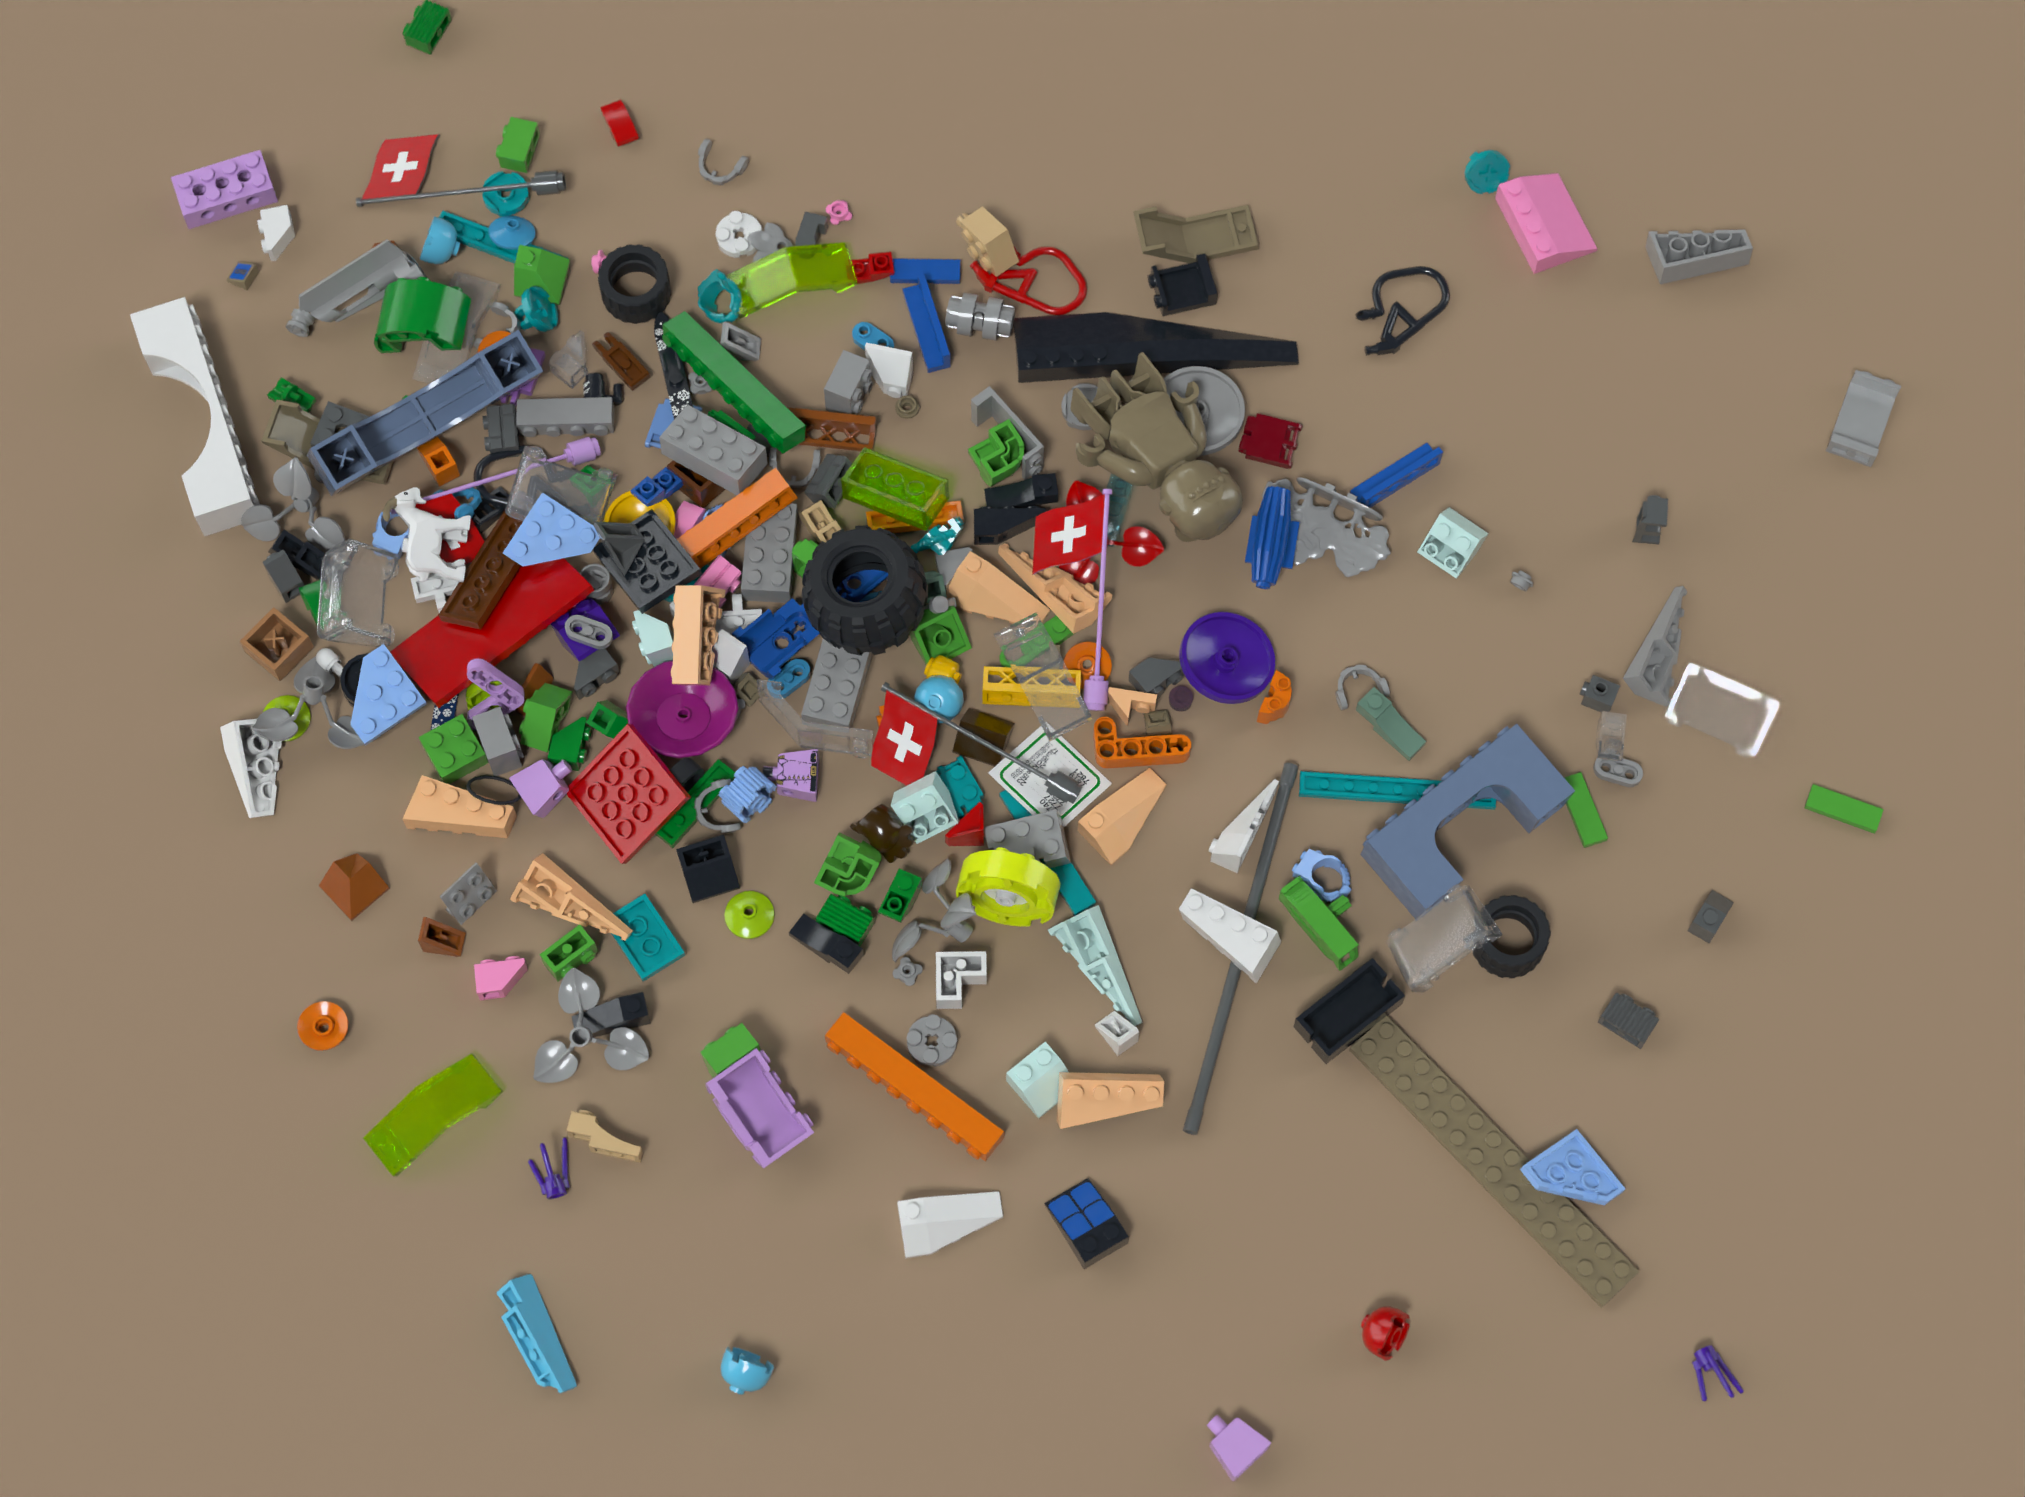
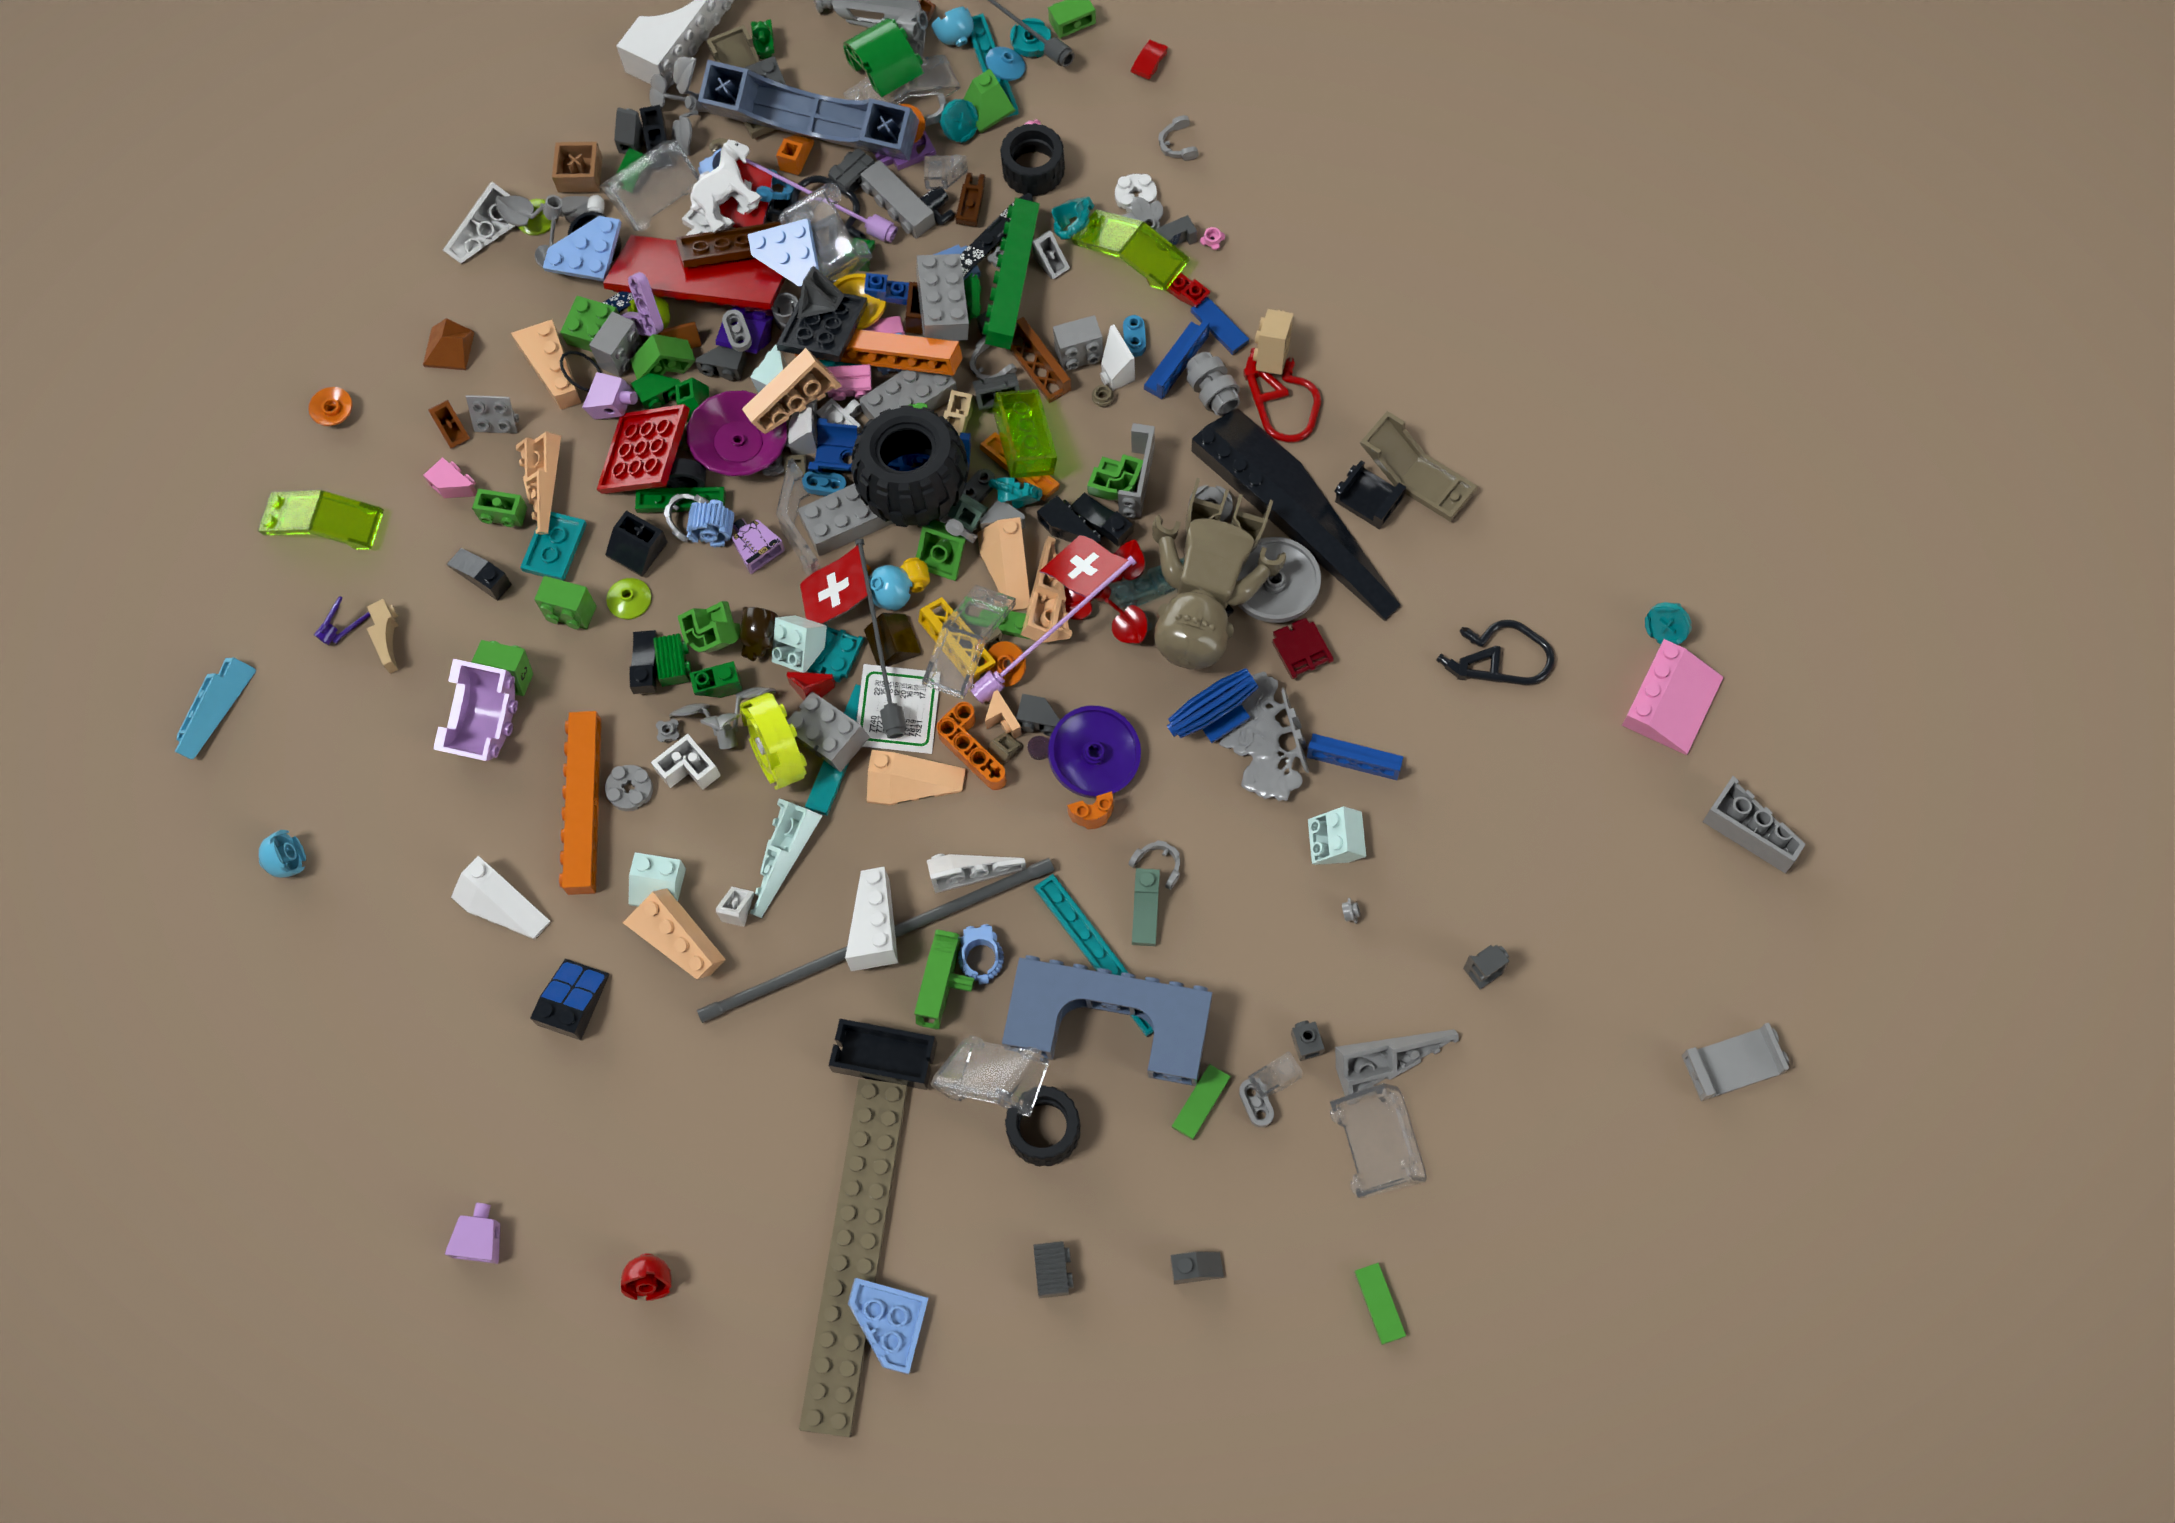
camera: 55 degrees right, 0 degrees up
(557, 1063) = (420, 560): light grey plant -> none
(716, 964) = (565, 603): none -> bright green brick

